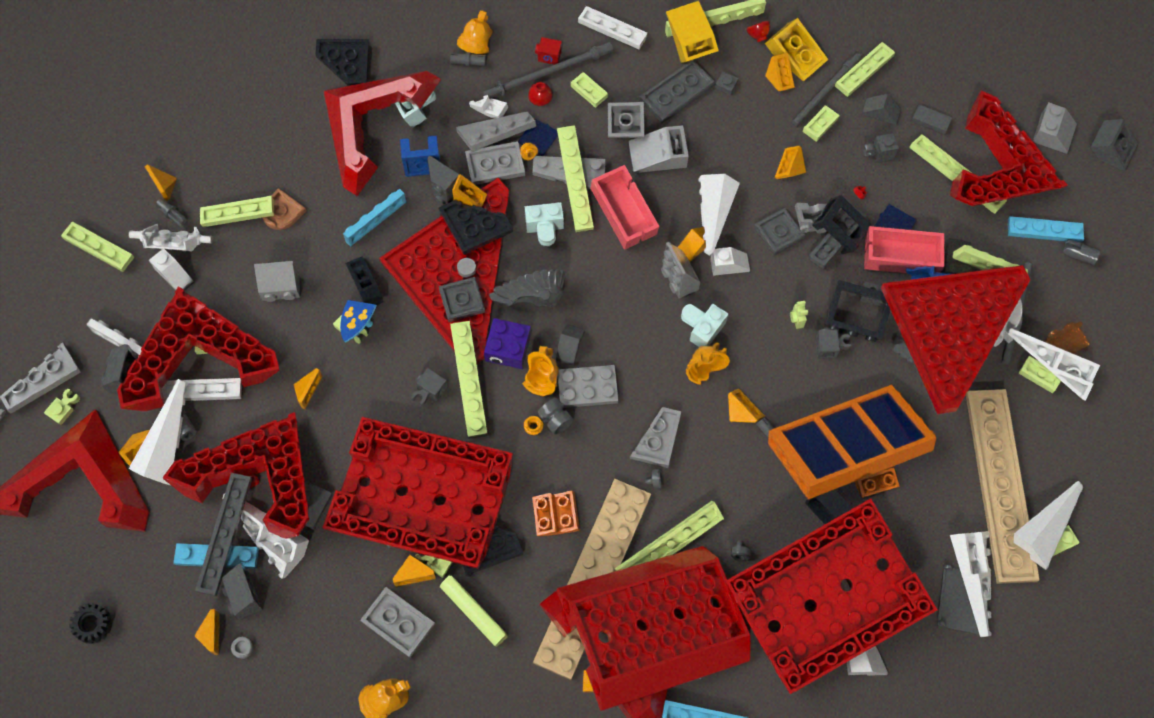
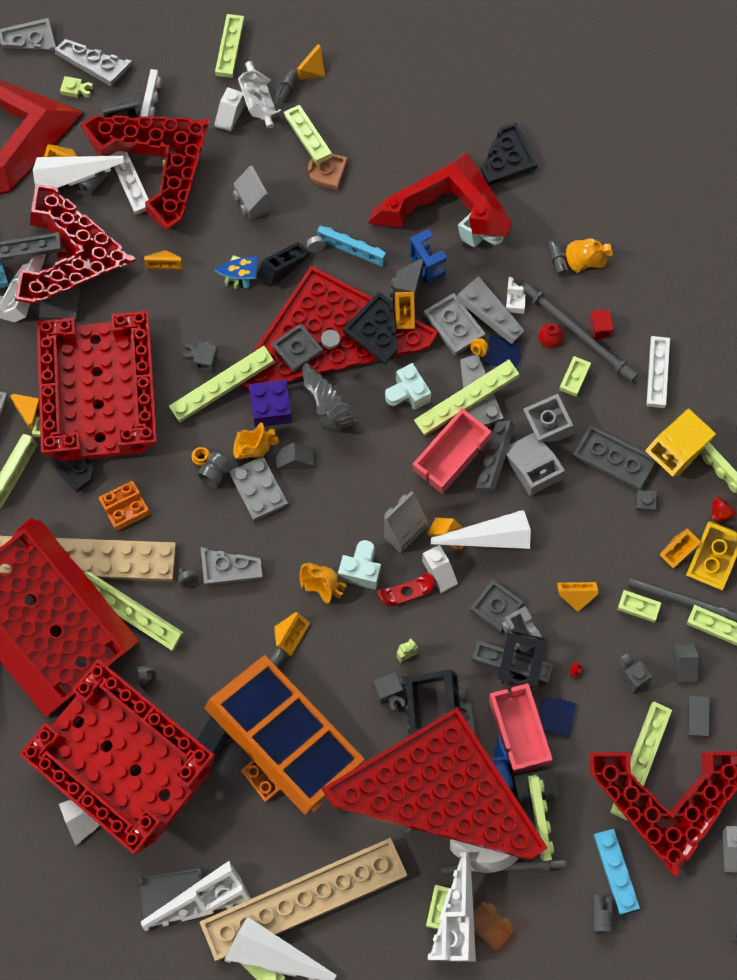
camera: 70 degrees right, 0 degrees up
(357, 247) = (316, 244): none -> light grey tile
(644, 181) = (495, 456): none -> dark grey plate
(739, 284) = (420, 587): none -> red piece

